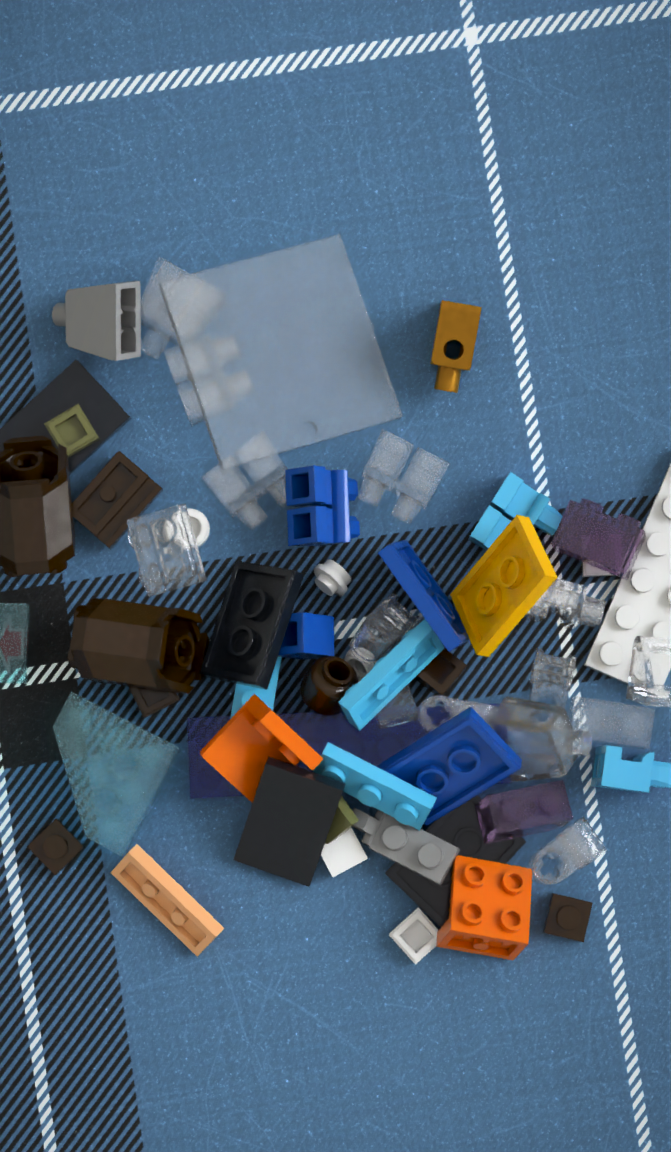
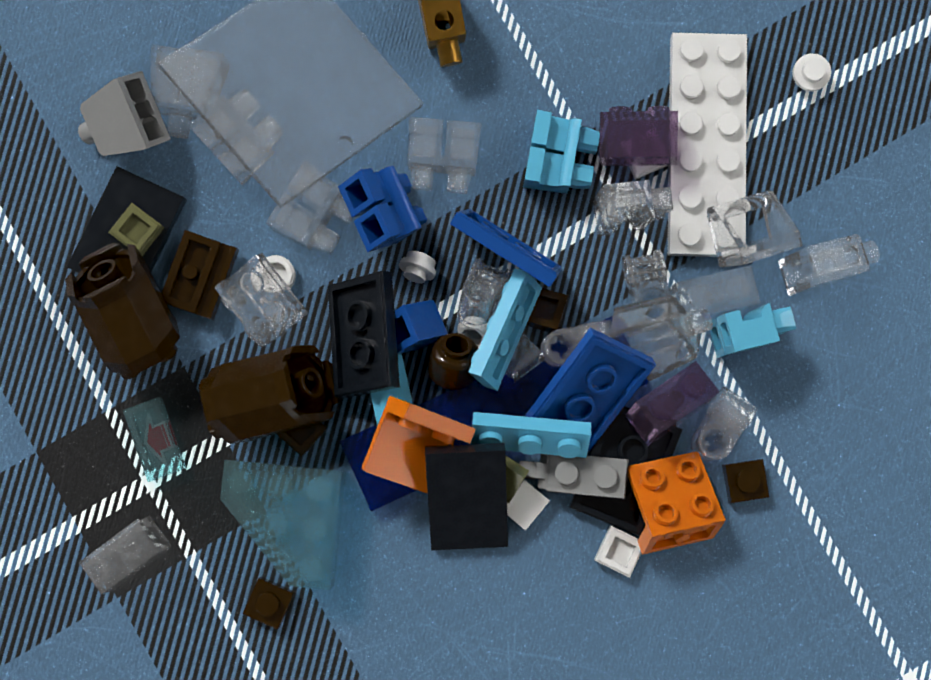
camera: 20 degrees left, 0 degrees up
(167, 900) = (386, 610): light nougat plate -> none
(503, 585) = (574, 209): yellow plate -> none

